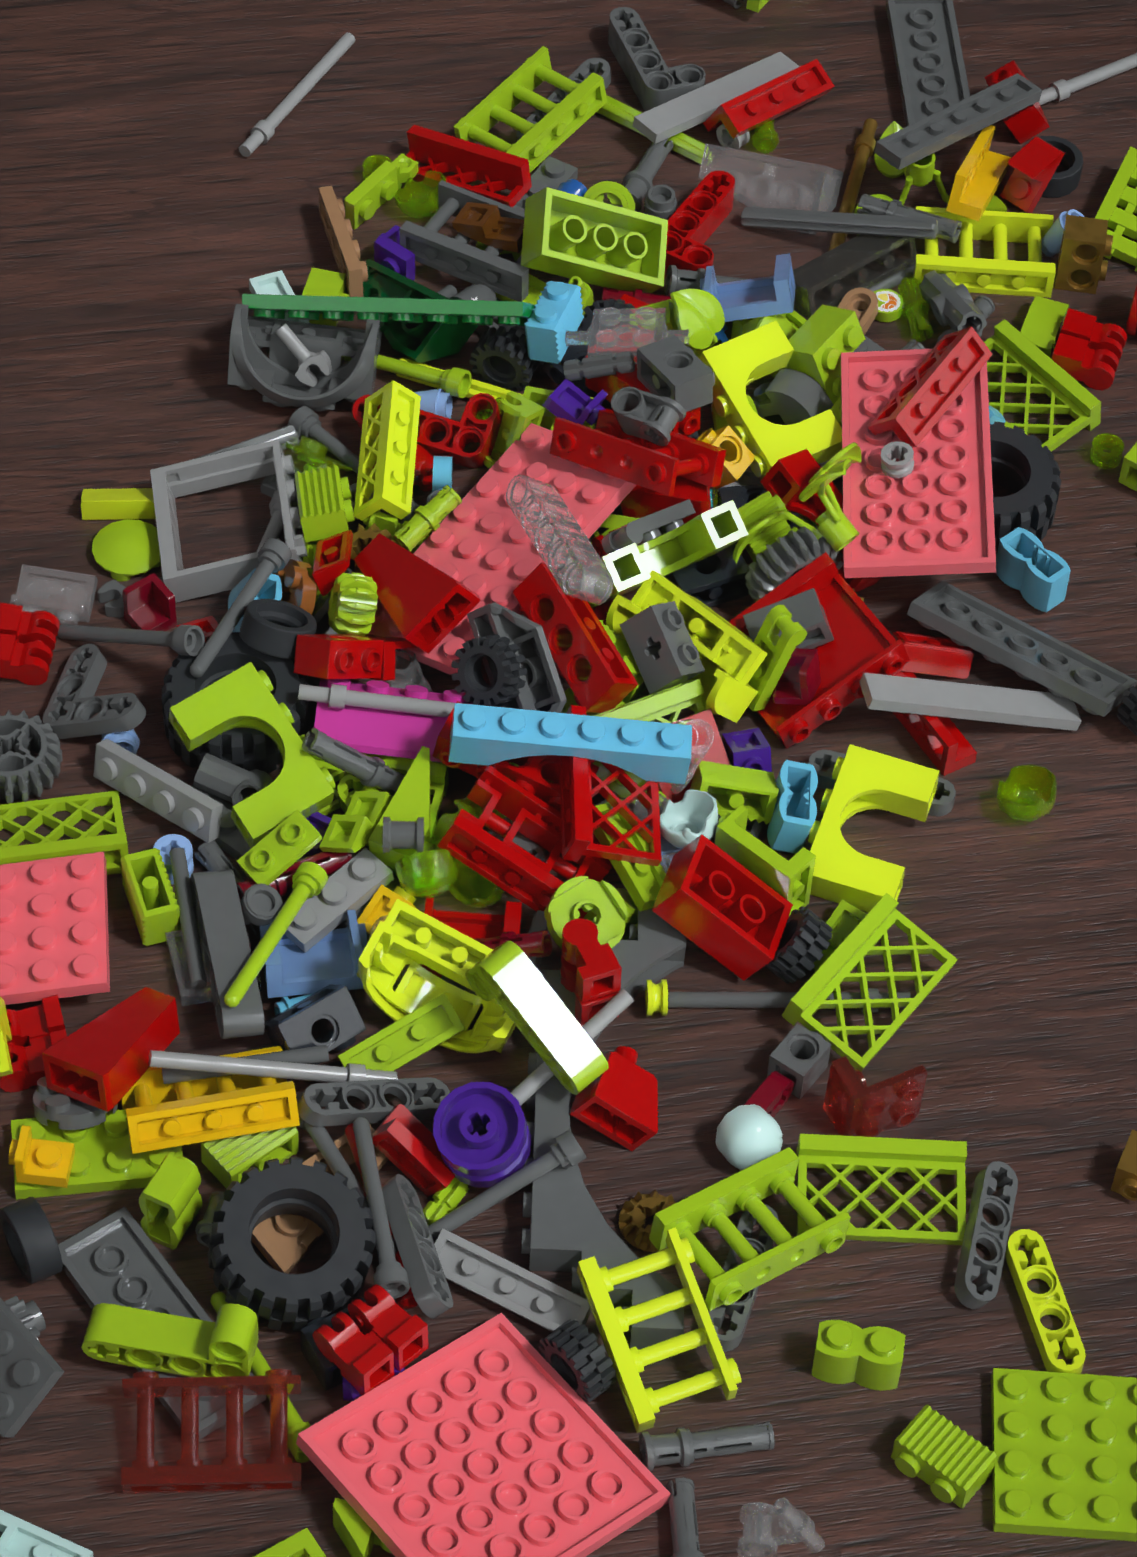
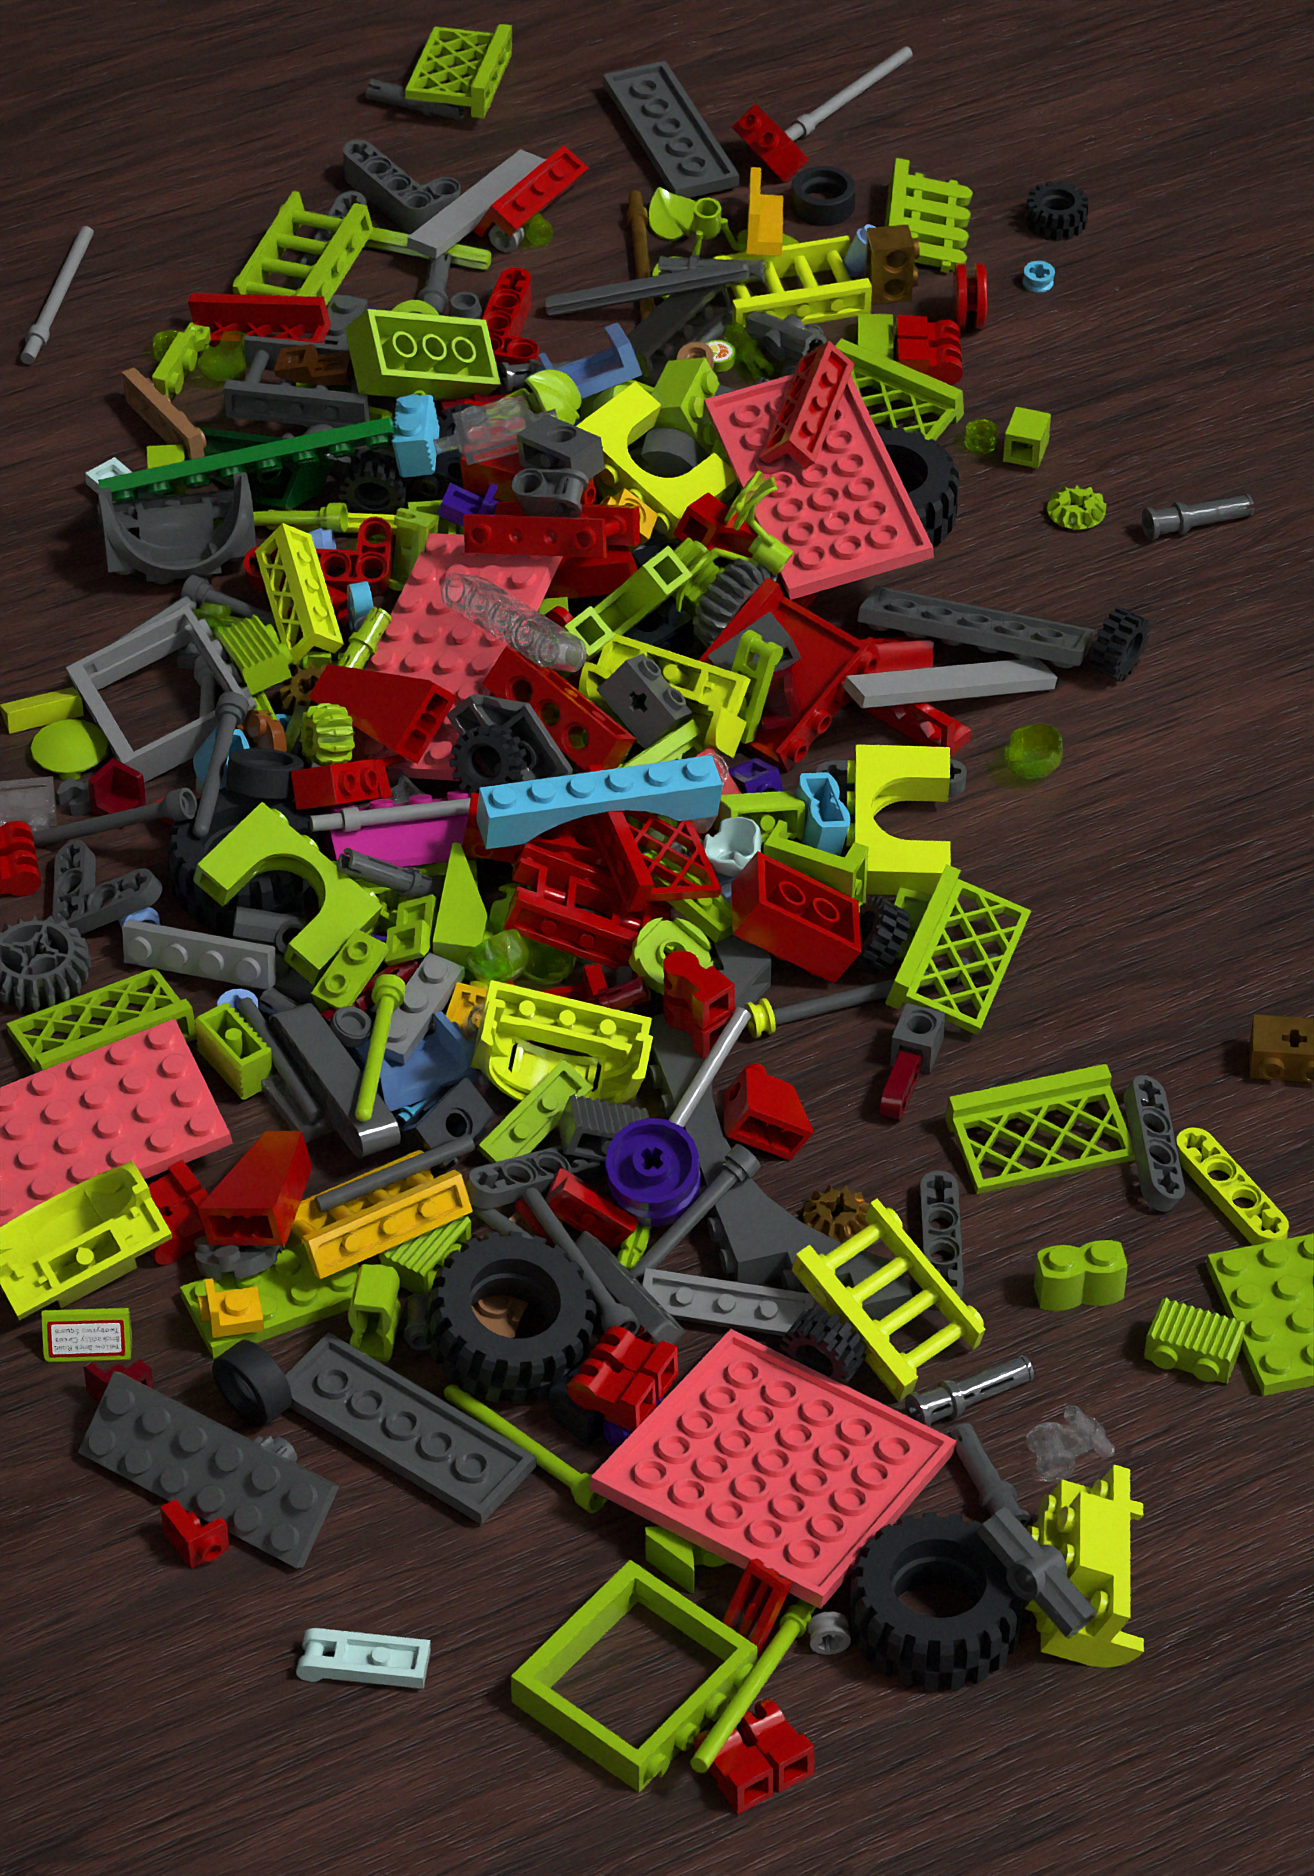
camera: 15 degrees left, 5 degrees down
(174, 1342) = (435, 1433): lime beam -> none
(234, 1472) = (493, 1547): clear red fence -> none
(266, 1068) = (412, 1170): light grey bar -> none
(304, 356) = (176, 526): light grey bar -> none
(331, 559) = (288, 701): red slope -> none
(393, 255) = (218, 416): dark purple bracket -> none
(403, 834) = (468, 925): dark grey bush -> none
(449, 1064) = (591, 1125): none -> dark grey brick
(539, 1015) = (669, 1044): beam -> none
(599, 366) = (480, 462): dark grey axle -> none
(648, 527) = (588, 595): dark grey plate -> none
(744, 1192) = (919, 1161): lime fence -> none
(748, 1136) = (900, 1115): light aqua hair -> none
(775, 181) = (565, 264): clear wedge -> none
(875, 1108) = (995, 1060): clear red bracket -> none
(895, 468) = (807, 476): light grey bush -> none
(957, 121) = (730, 167): dark grey plate -> none
(1032, 173) = (812, 203): red slope -> none
(1032, 569) = (961, 555): medium azure brick -> none

